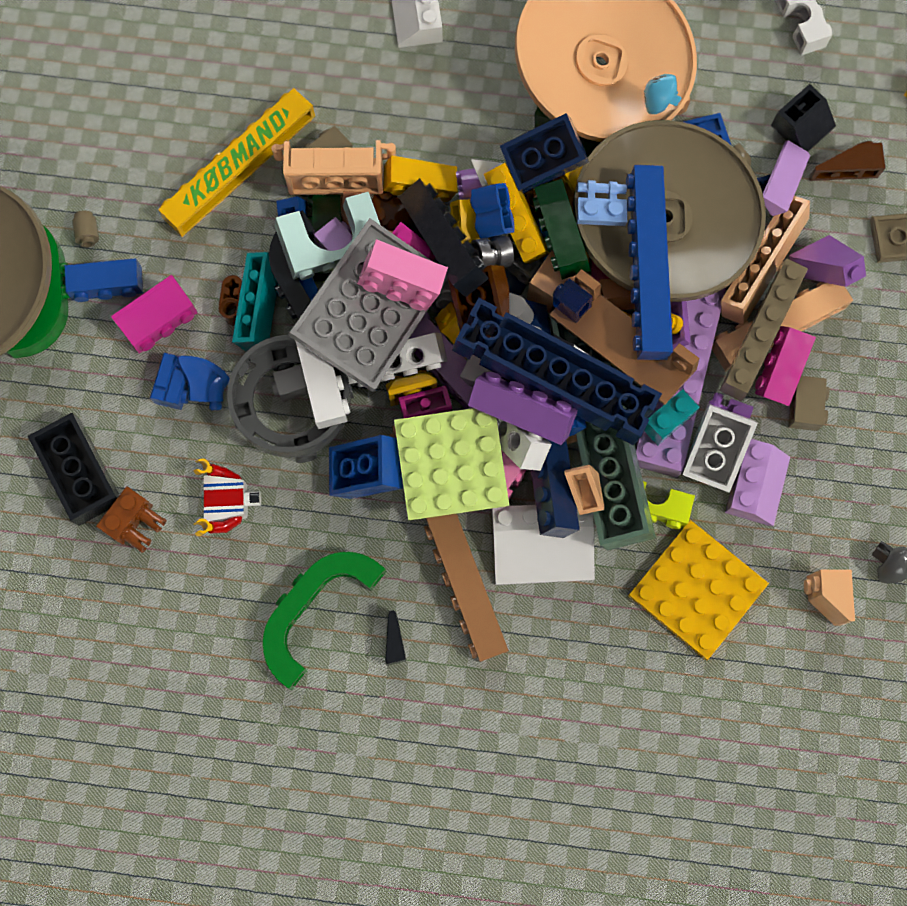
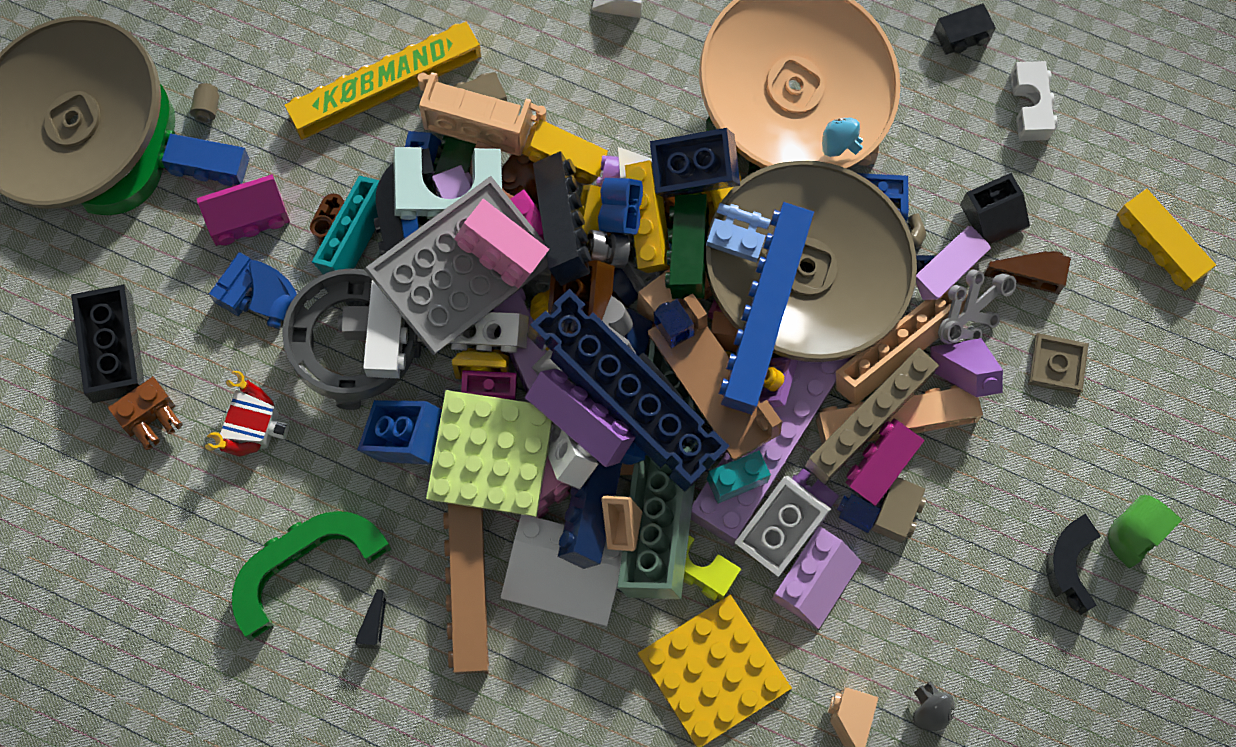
camera: 15 degrees right, 5 degrees down
(775, 416) = (858, 512): none -> clear blue brick
(804, 233) = (951, 328): none -> light grey plant

